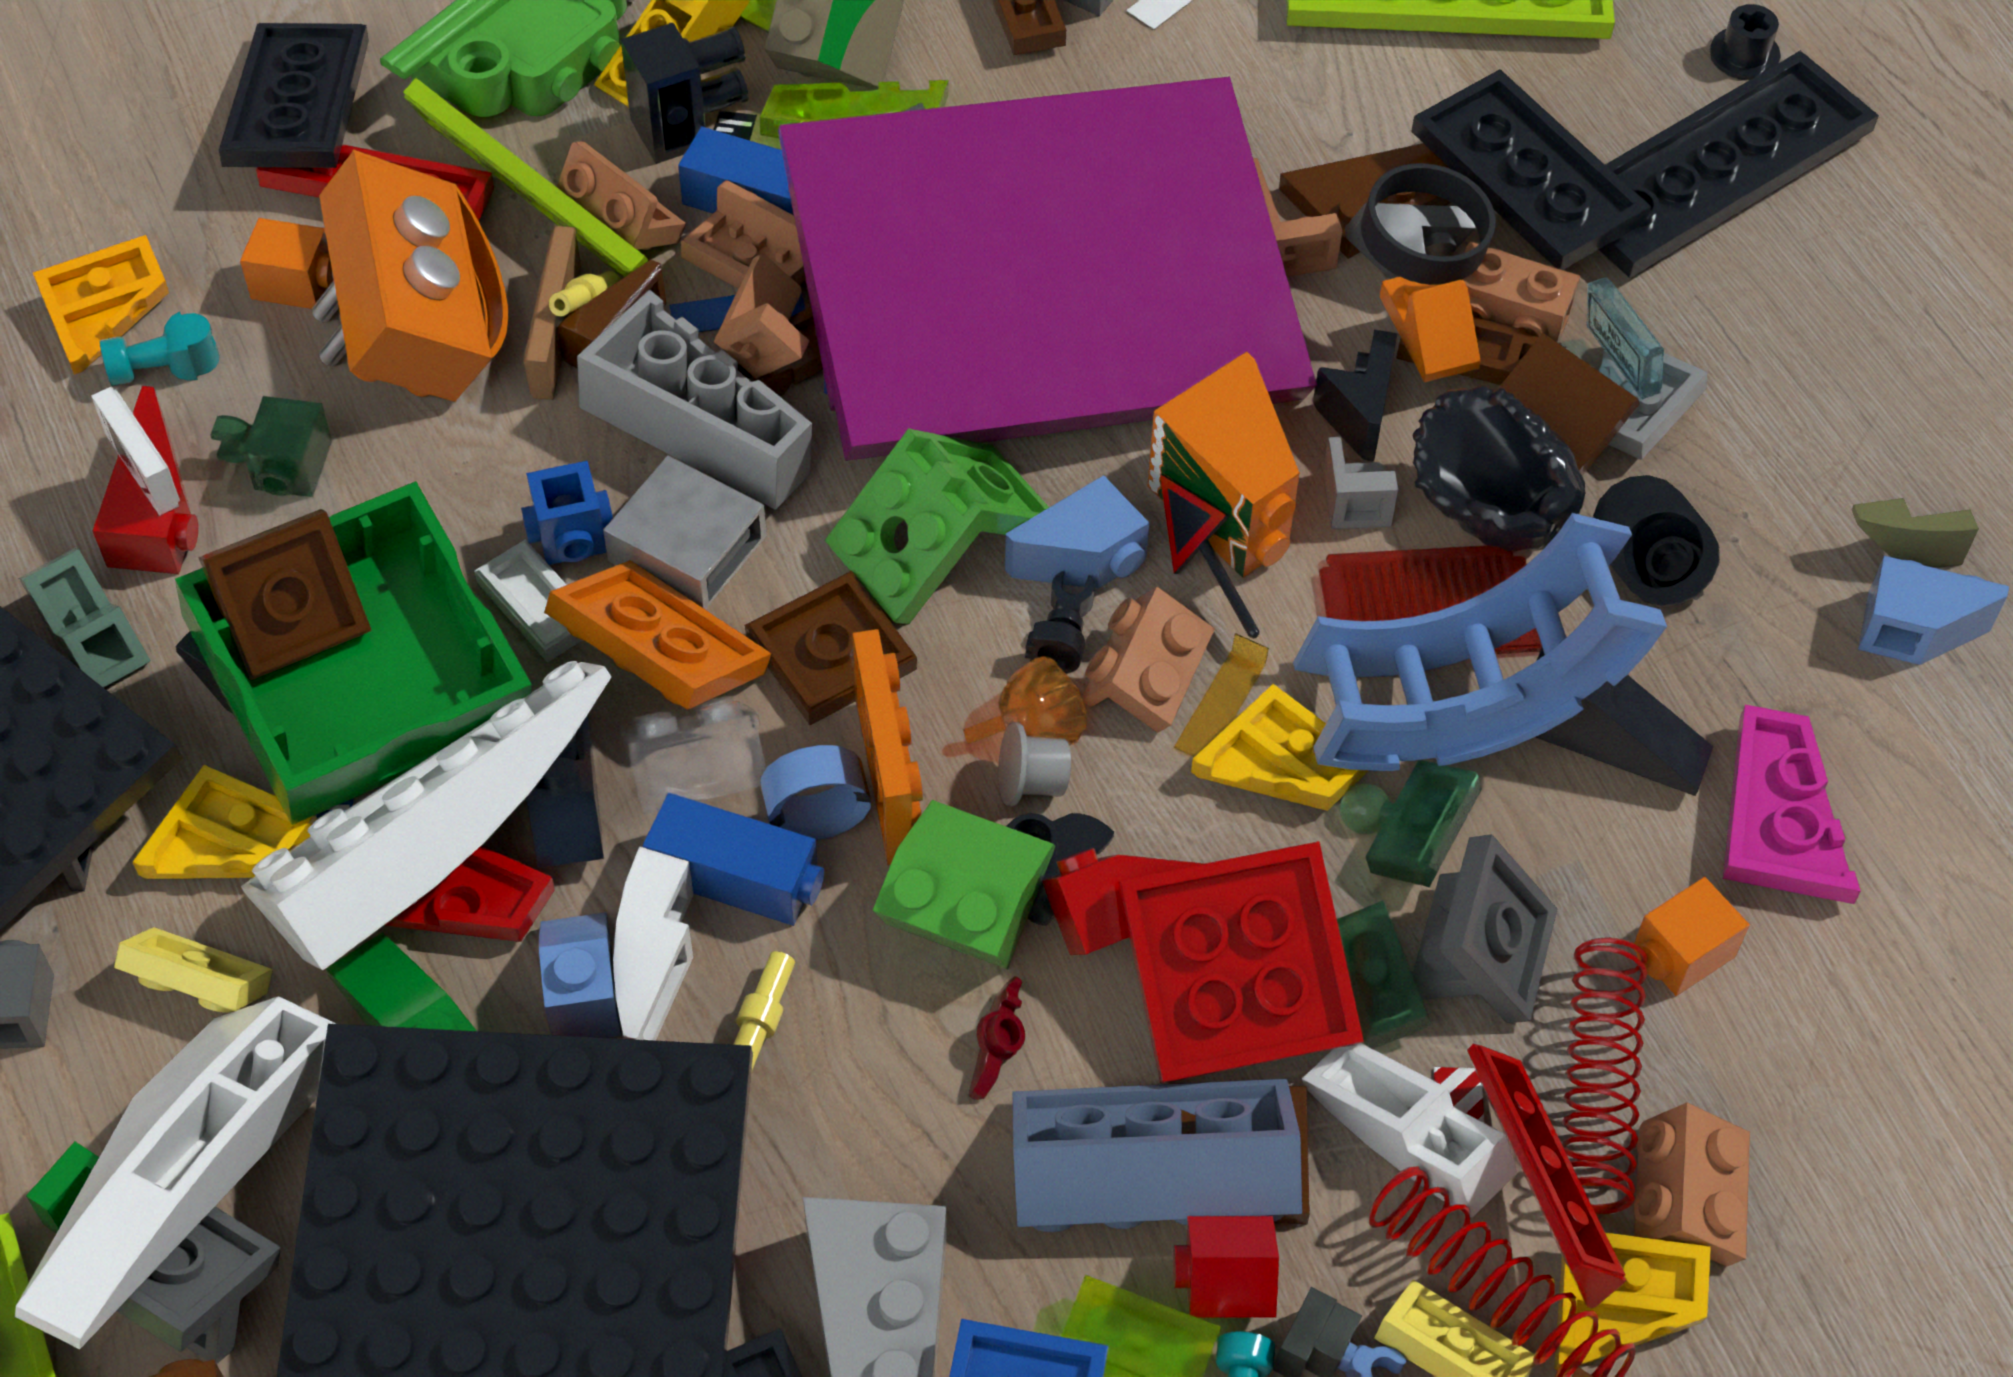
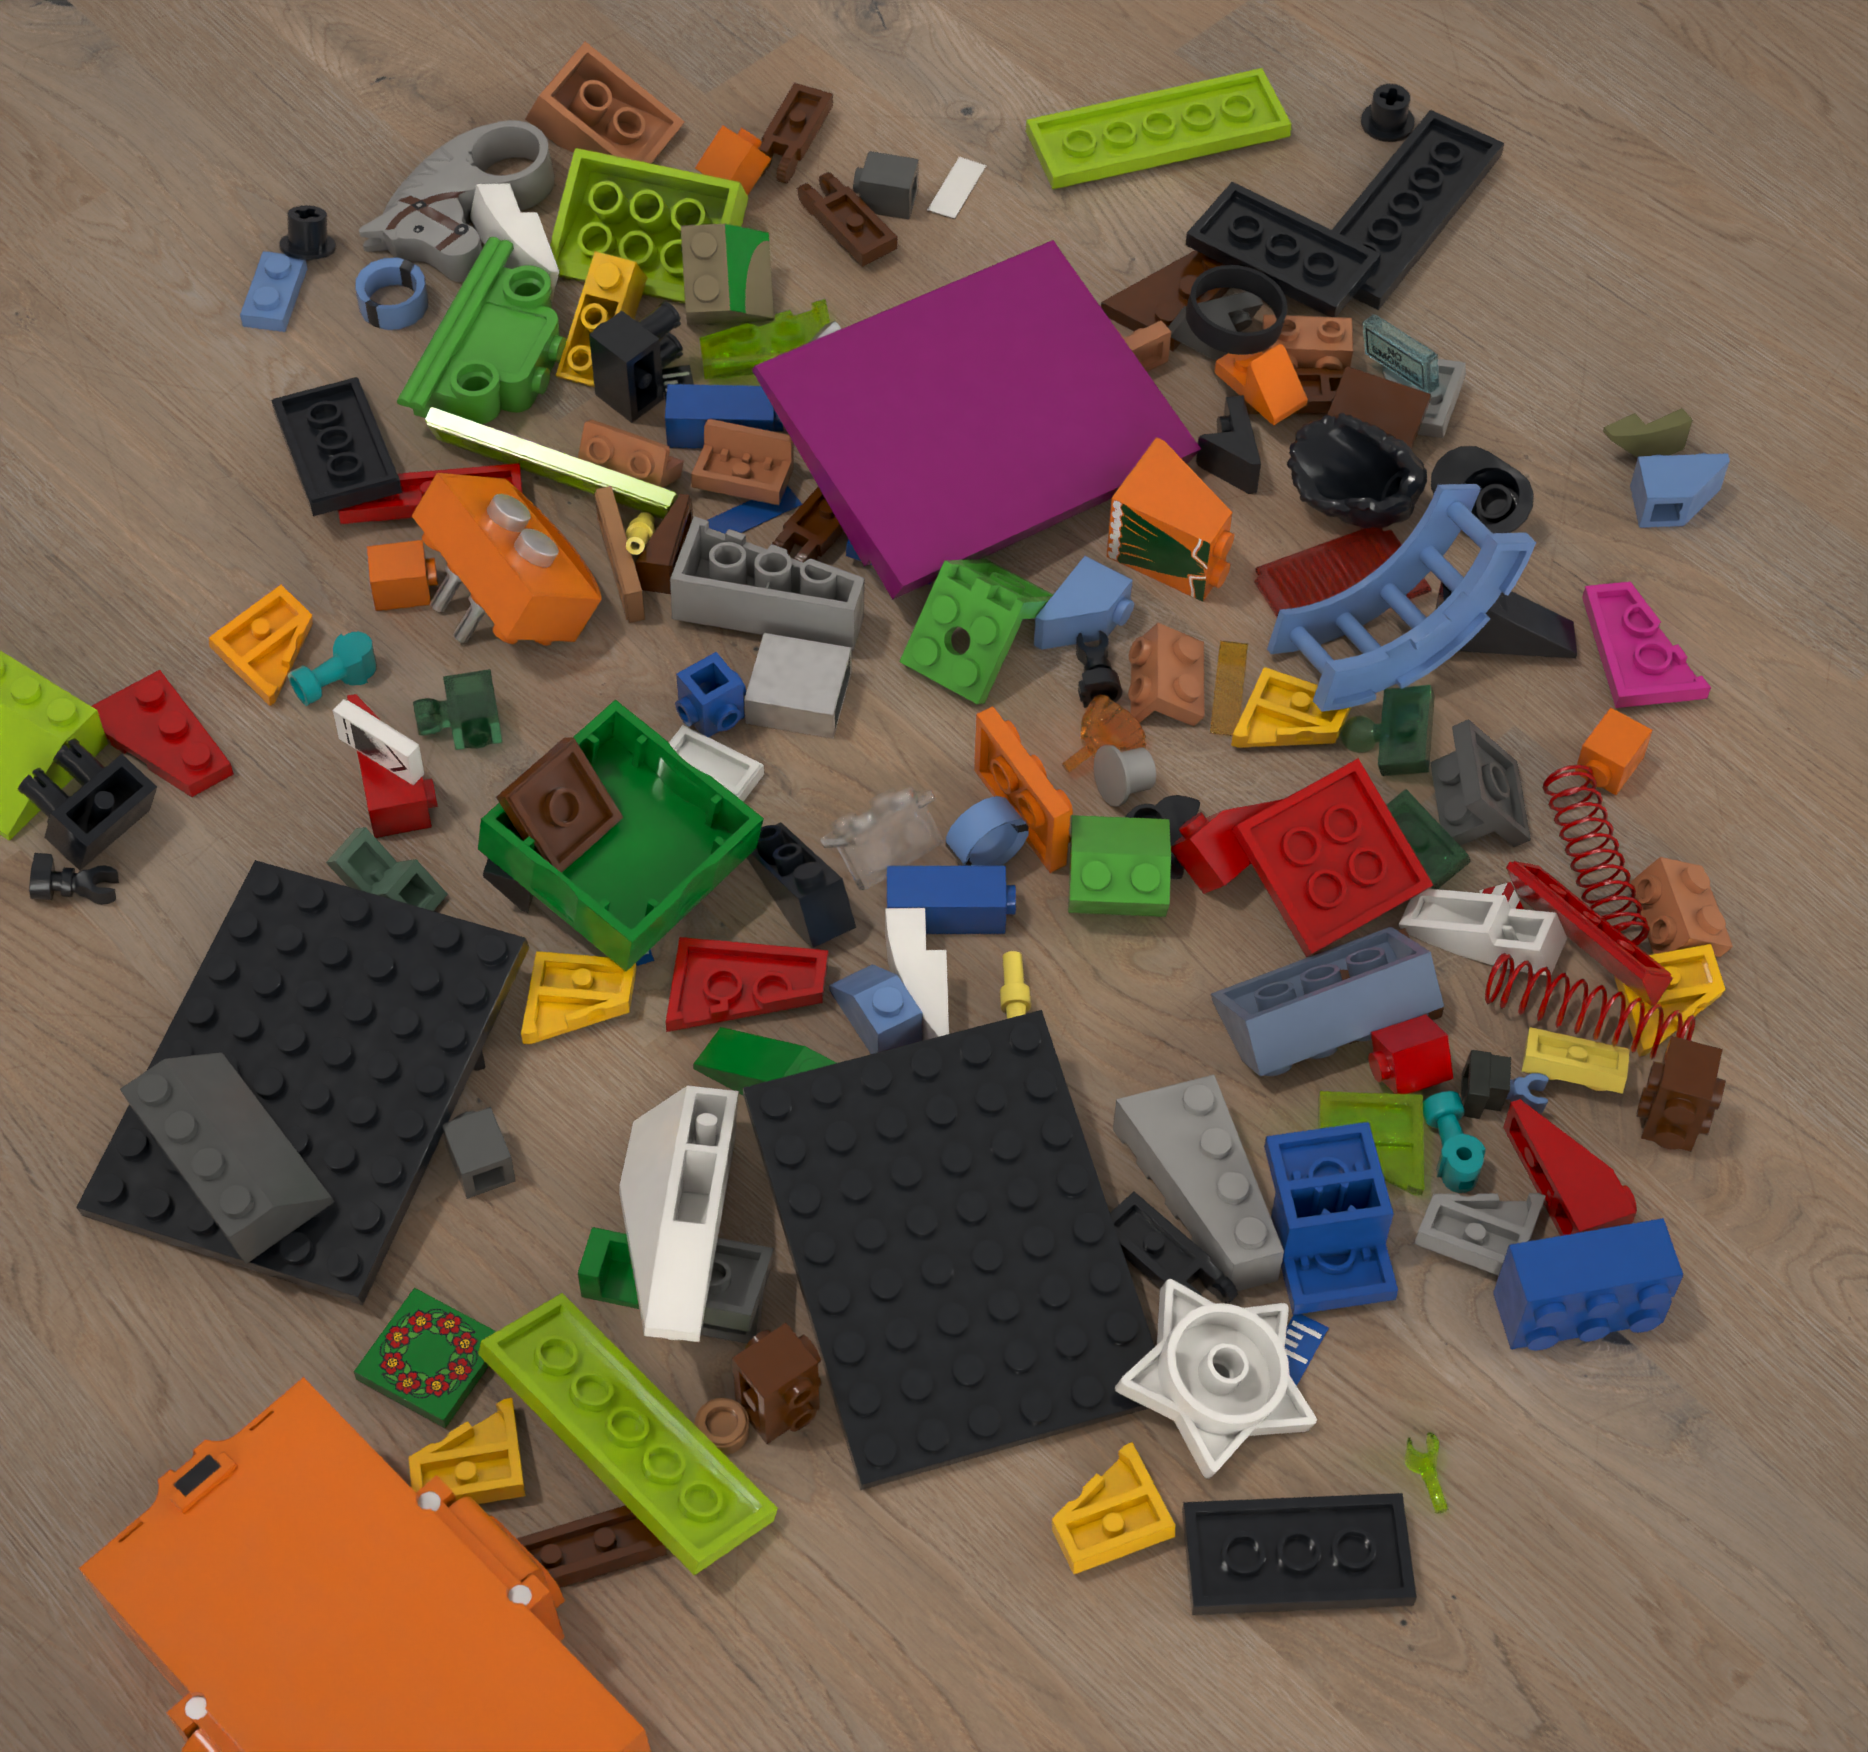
camera: 20 degrees left, 0 degrees up
(179, 964) = (583, 1093): light yellow plate -> none
(421, 826) = (727, 940): white wedge -> none
(657, 634) = (819, 761): orange plate -> none
(758, 322) = (788, 518): nougat bracket -> none
(815, 644) = (932, 736): reddish brown tile -> none
(999, 1038) = (1185, 962): dark red piece -> none
(1189, 527) = (1158, 574): piece -> none
(1357, 492) = (1258, 517): light grey panel -> none

